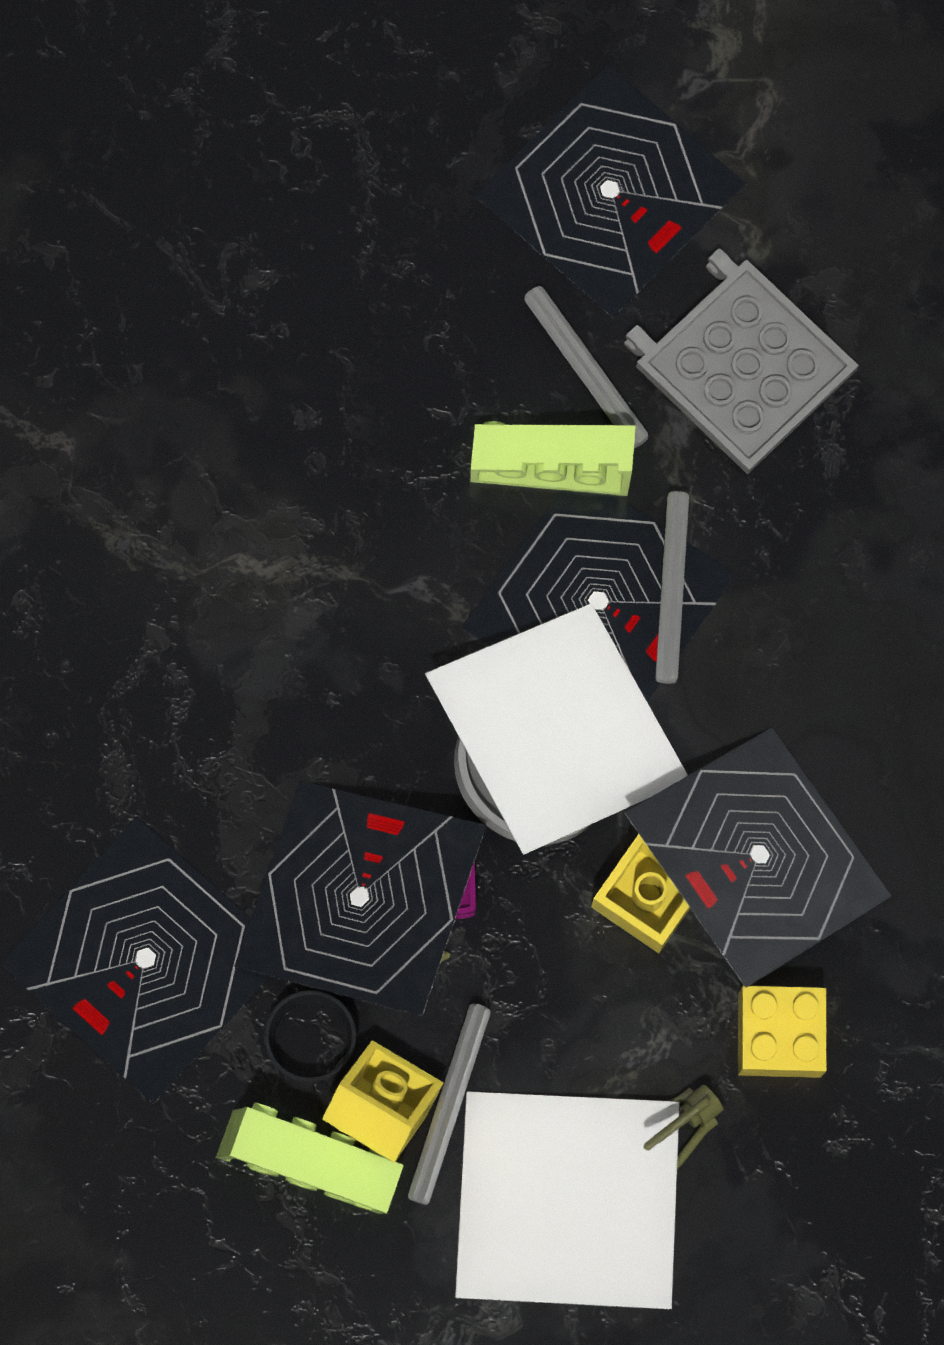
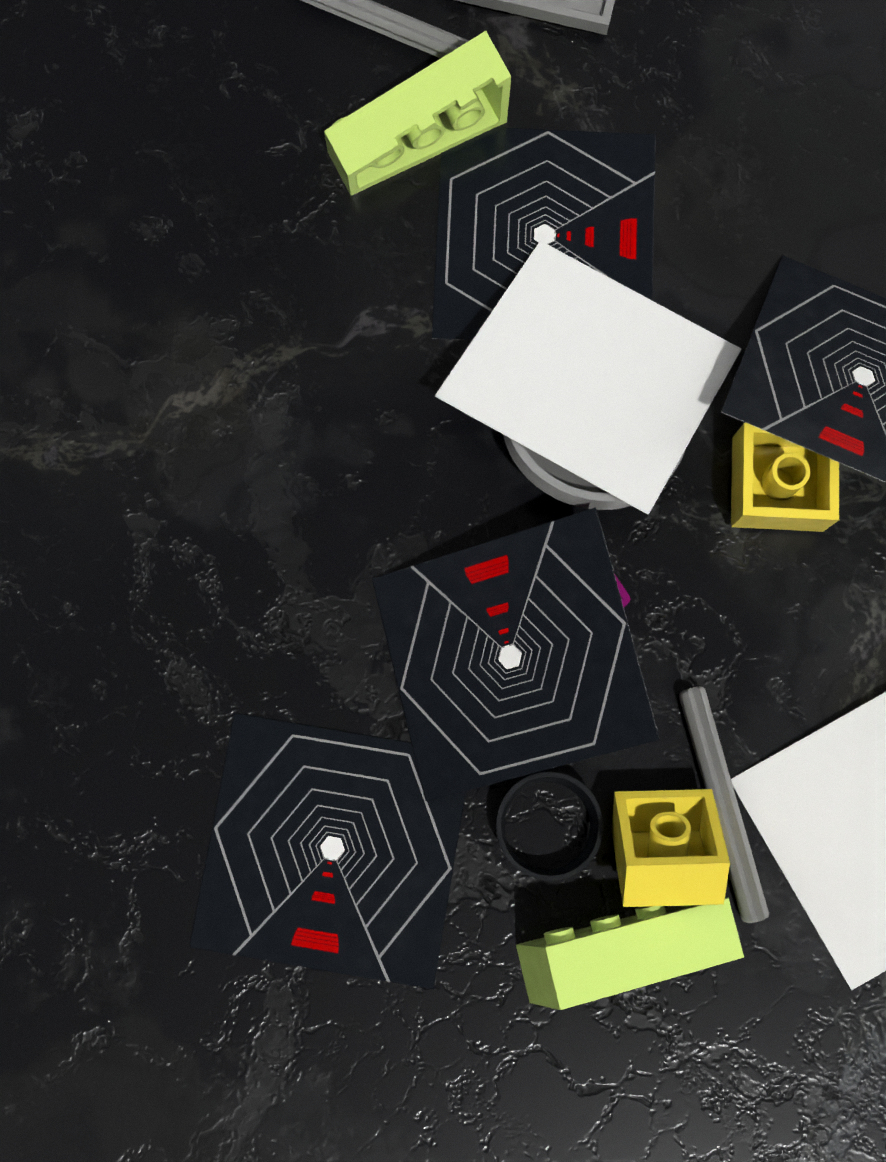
camera: 30 degrees left, 5 degrees up
(672, 587) = (608, 179): light grey axle -> none

